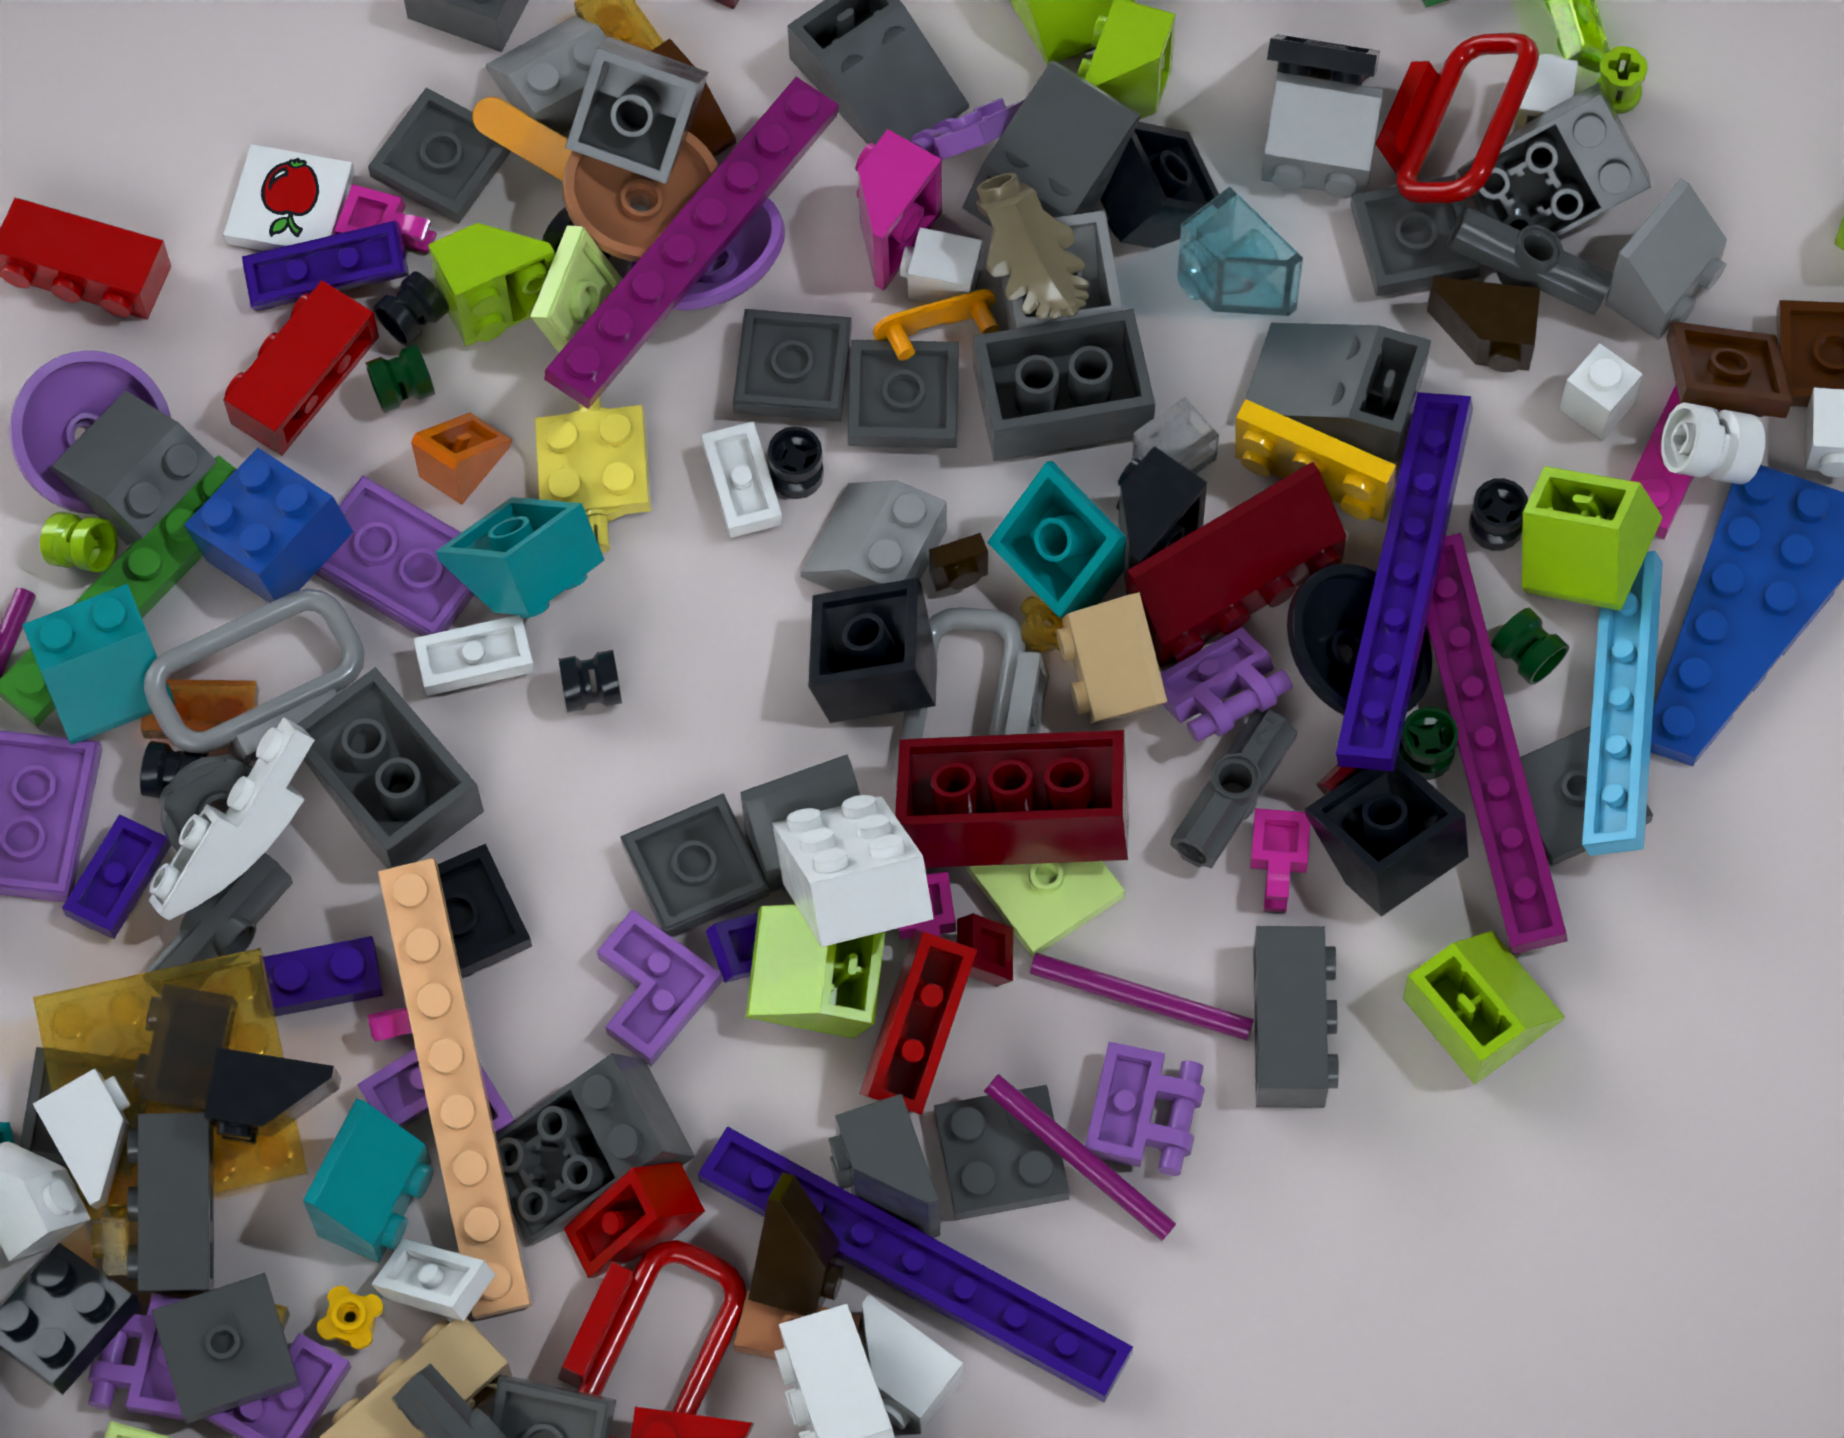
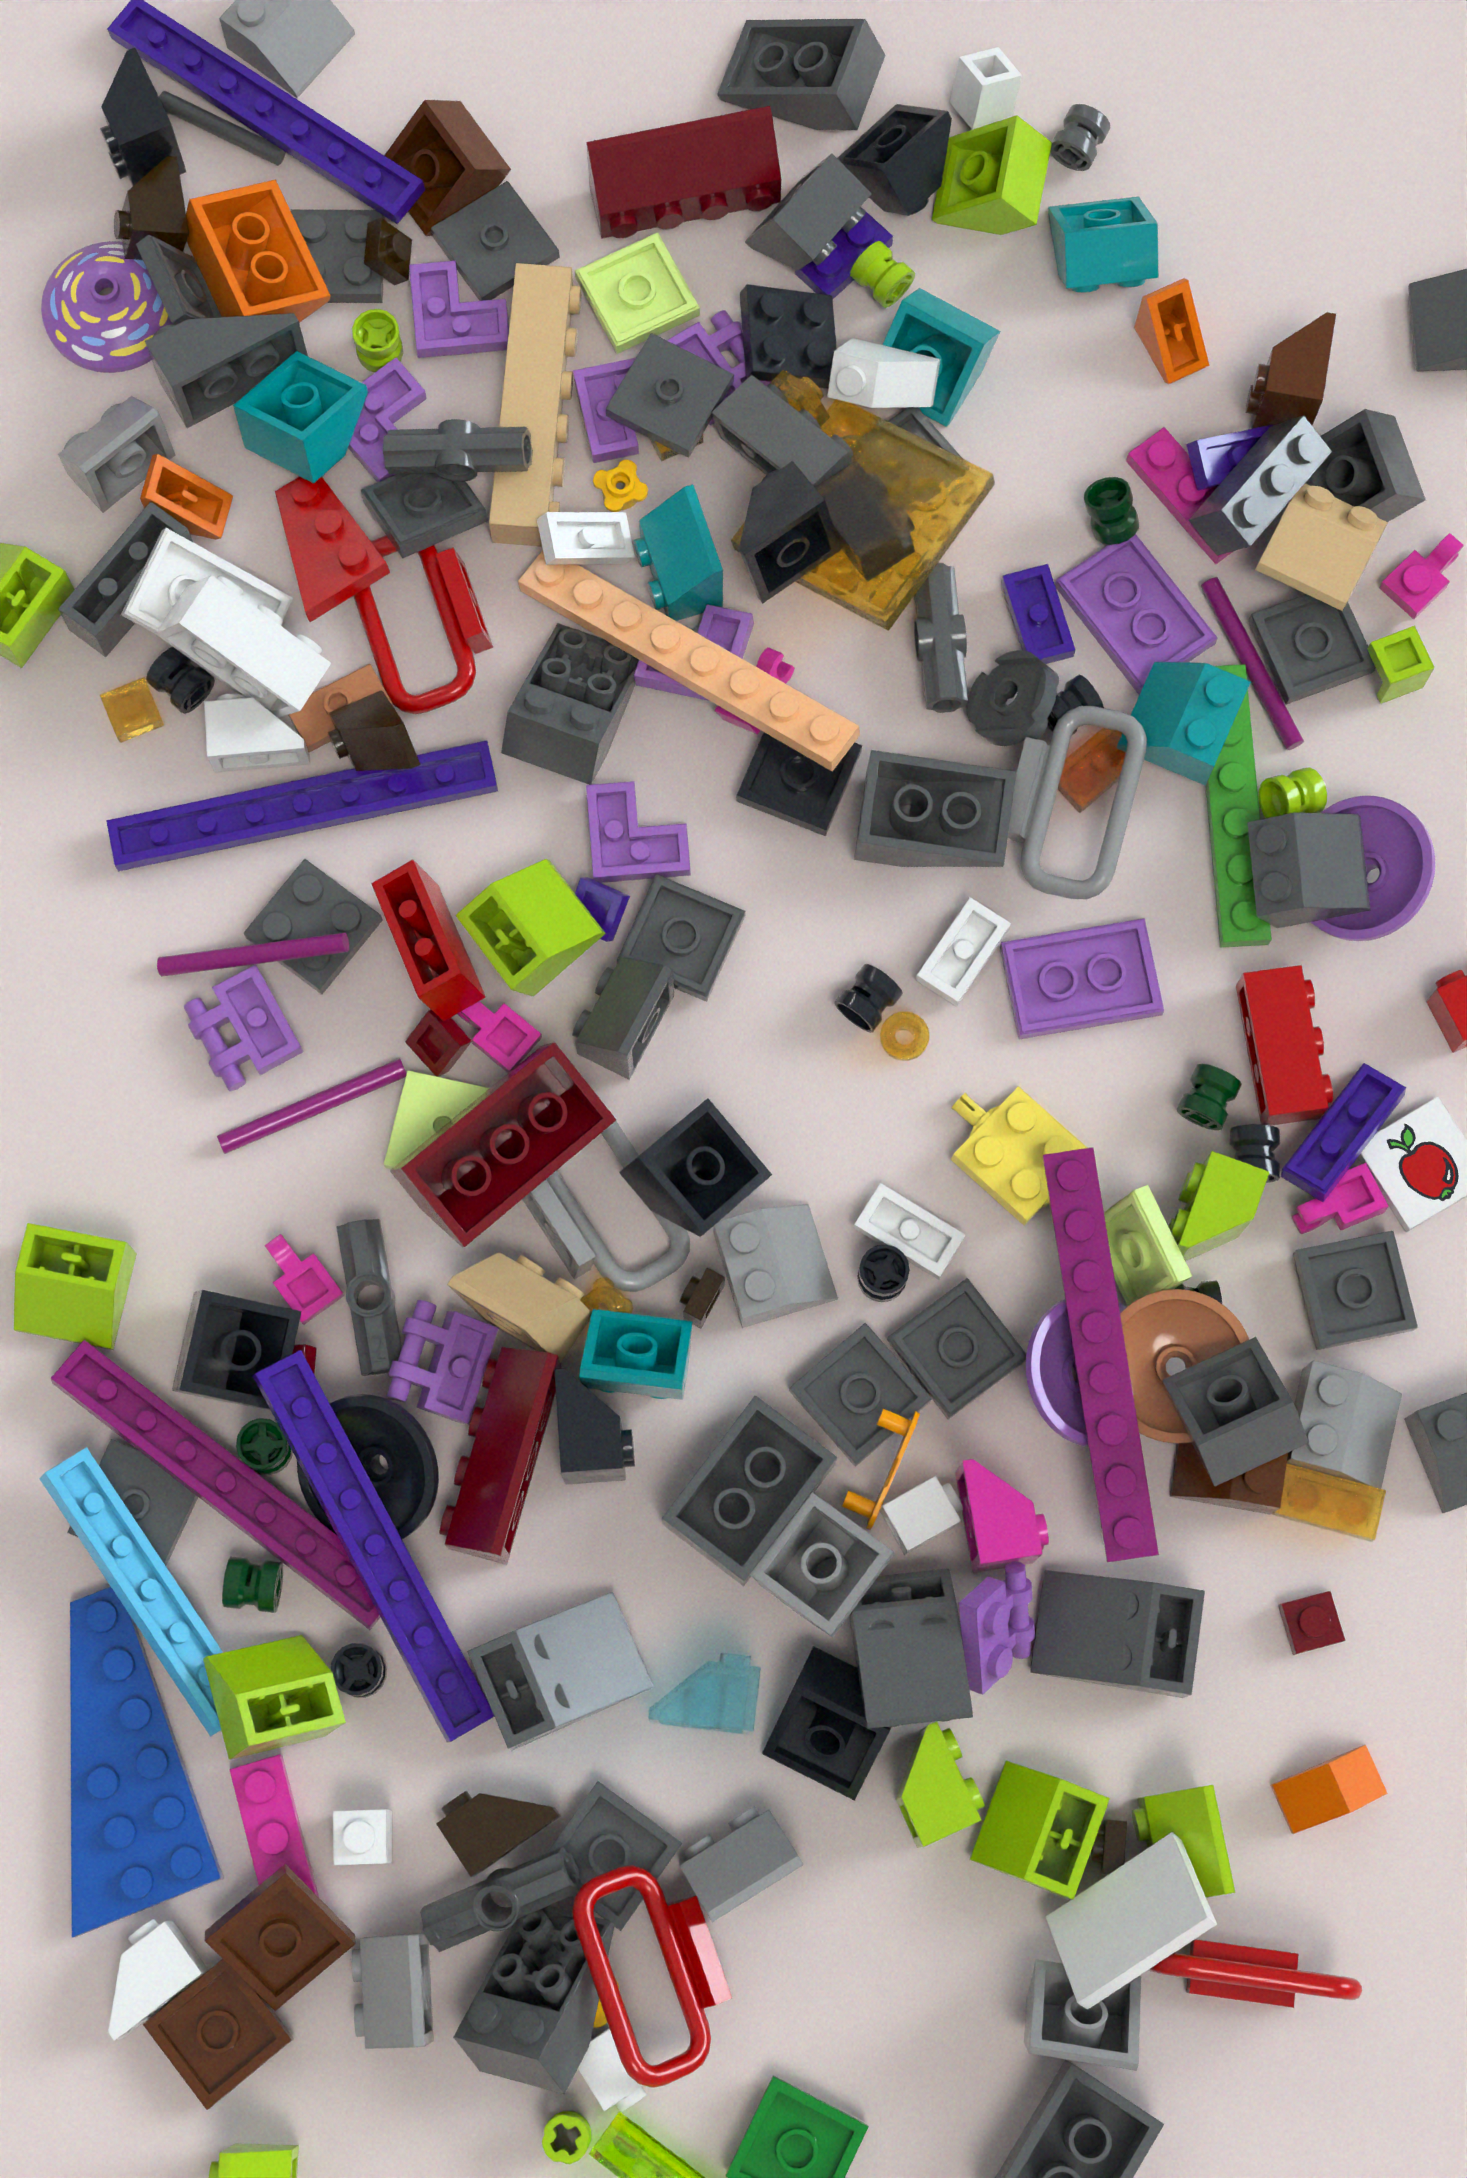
camera: 135 degrees right, 10 degrees up
(88, 1130) = (876, 428): white slope -> none
(224, 846) = (979, 681): white slope -> none
(269, 527) = (1178, 907): blue brick -> none
(324, 976) = (850, 668): dark purple plate -> none
(458, 454) = (1115, 1081): orange slope -> none
(522, 135) = (1320, 1343): light orange piece -> none
(524, 554) = (996, 1037): teal slope -> none
(589, 619) = (909, 1022): none -> clear yellow plate
(634, 1215) = (496, 682): red slope -> none
(852, 870) = (546, 974): white brick -> none
(884, 1163) = (362, 832): dark grey slope -> none
(1031, 249) = (853, 1553): dark tan plant -> none
(1181, 435) = (633, 1518): clear brick -> none
(1281, 446) = (514, 1580): yellow plate -> none
(1293, 1017) = (194, 1170): dark grey brick -> none
(1300, 55) = (792, 1928): black plate -> none
(1713, 443) = (238, 1851): white wheel -> none

